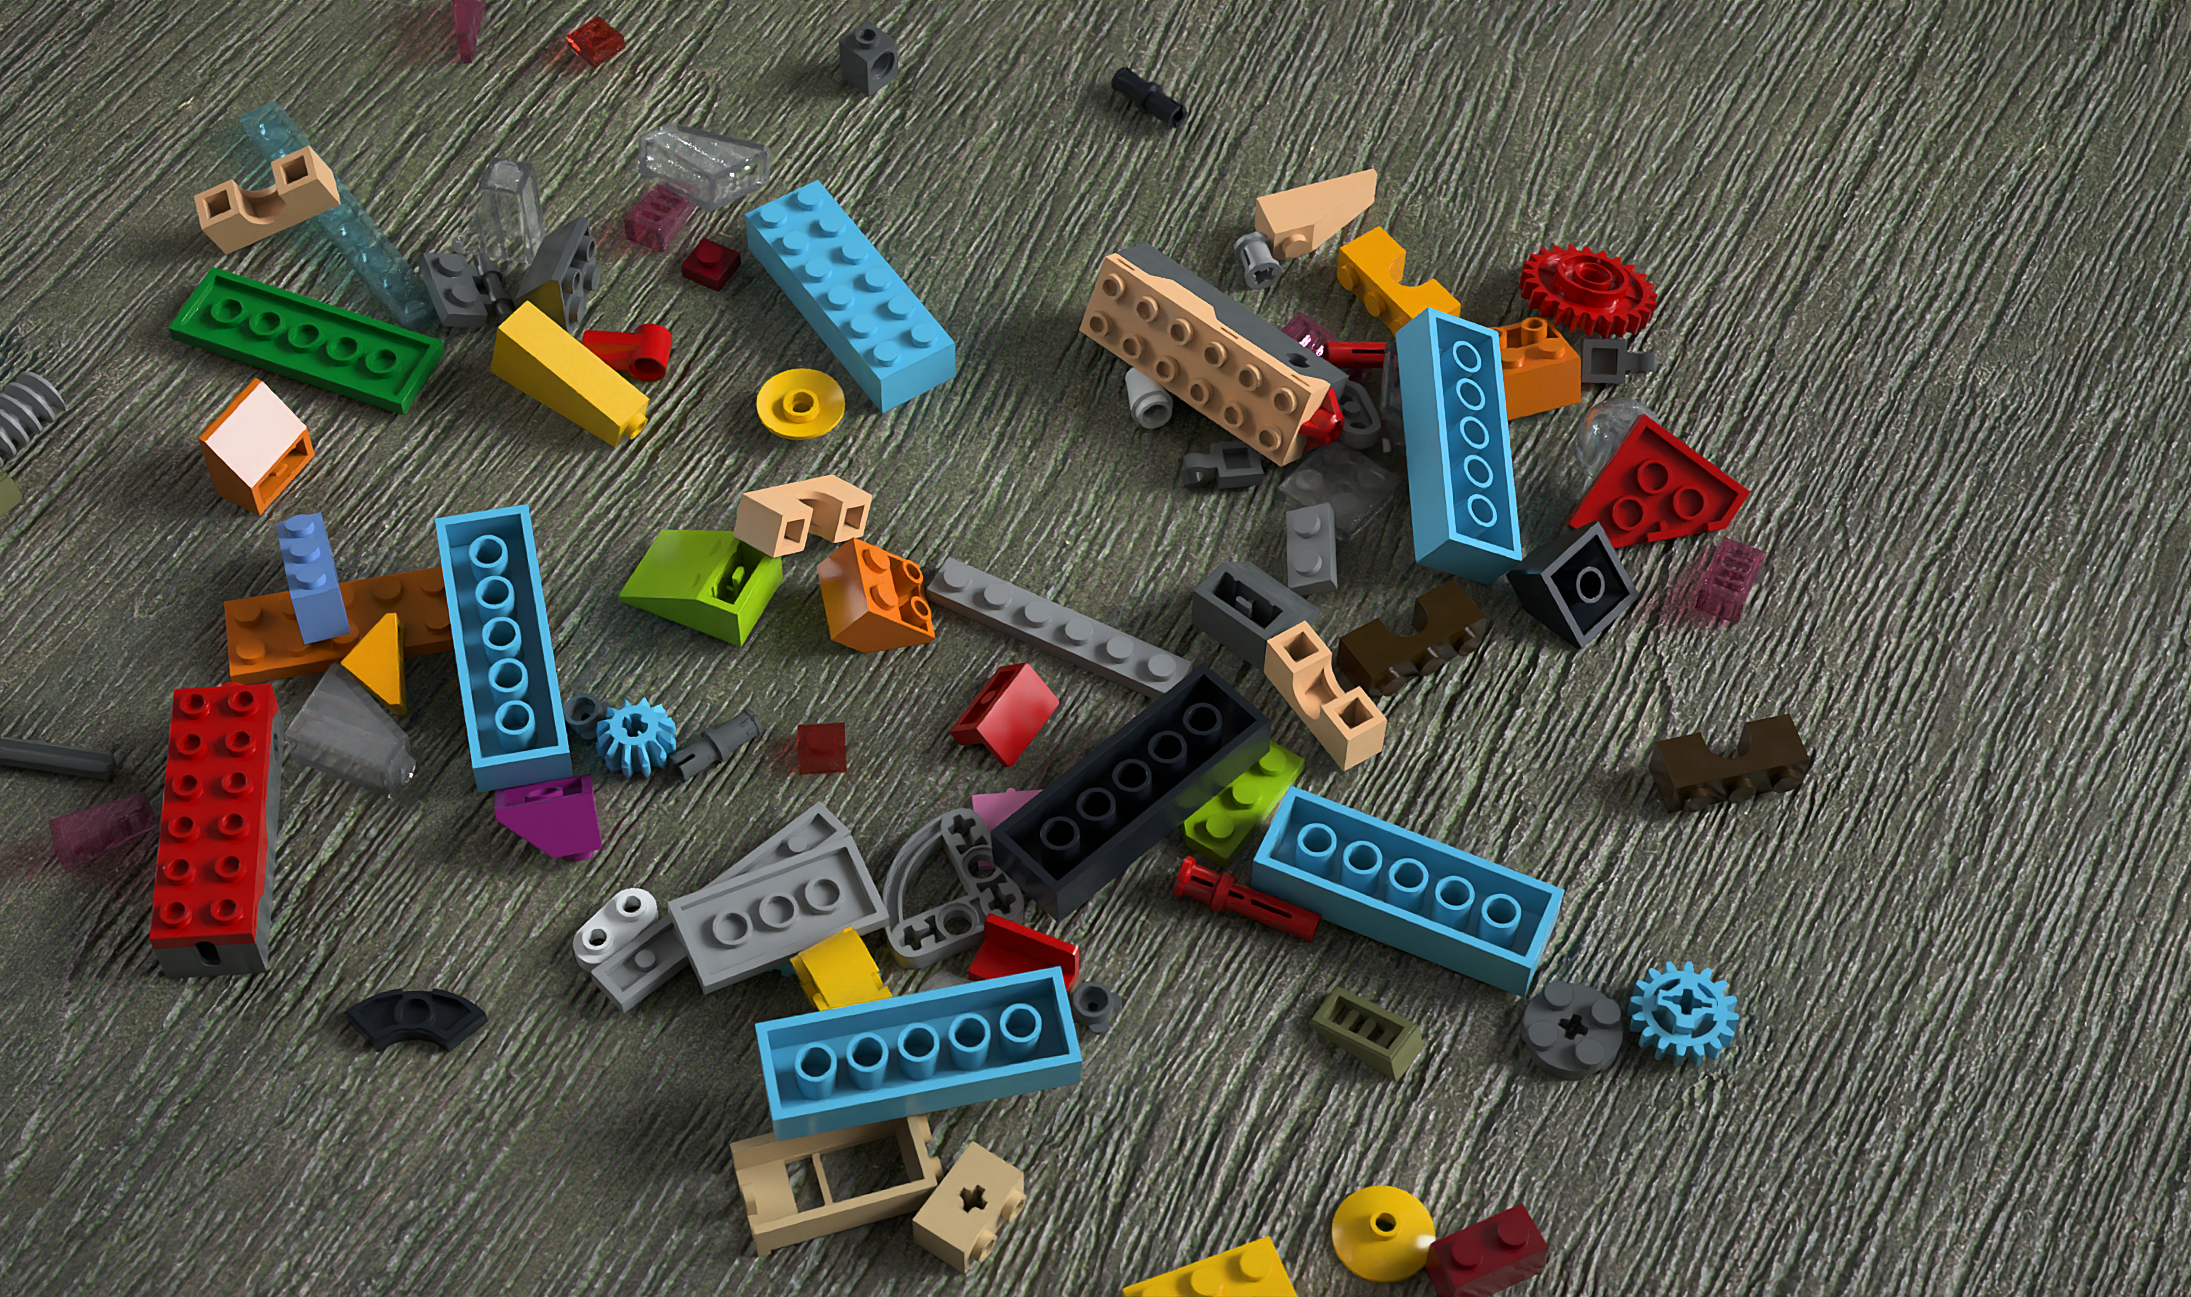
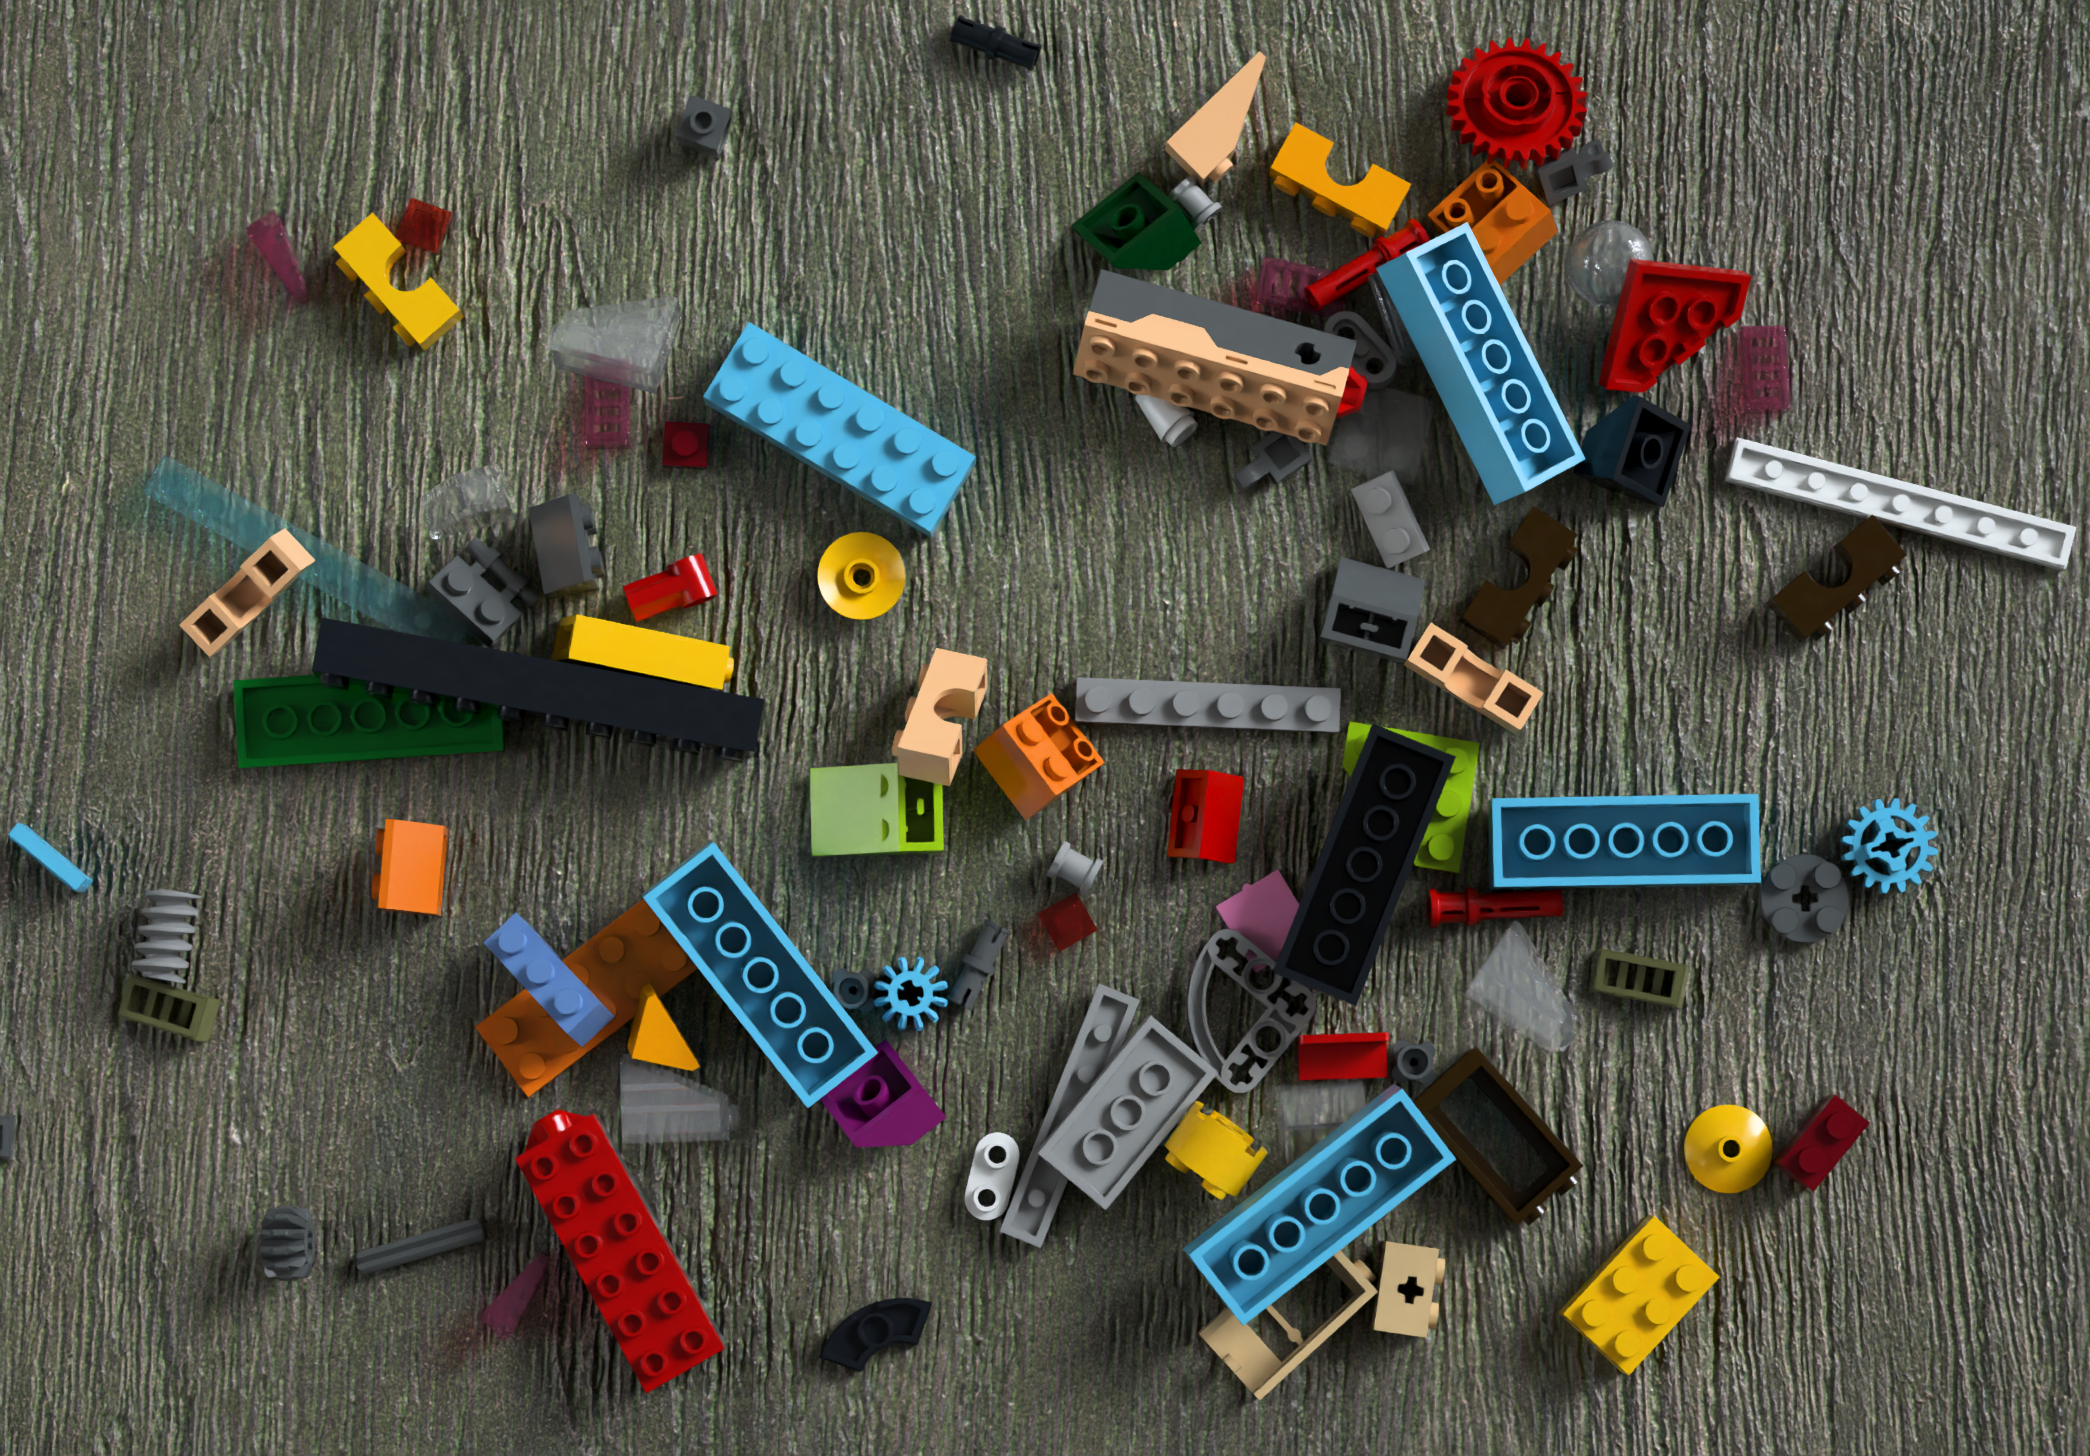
camera: 30 degrees left, 30 degrees up
(461, 354) = (536, 688): none -> black brick
(546, 66) = (420, 313): none -> yellow arch
(855, 702) = (1074, 868): none -> light grey bush
(1150, 1032) = (1560, 1161): none -> dark brown piece
(1210, 255) = (1138, 228): none -> dark green slope
(1234, 986) = (1523, 993): none -> clear slope
(1826, 738) = (1900, 504): none -> white tile

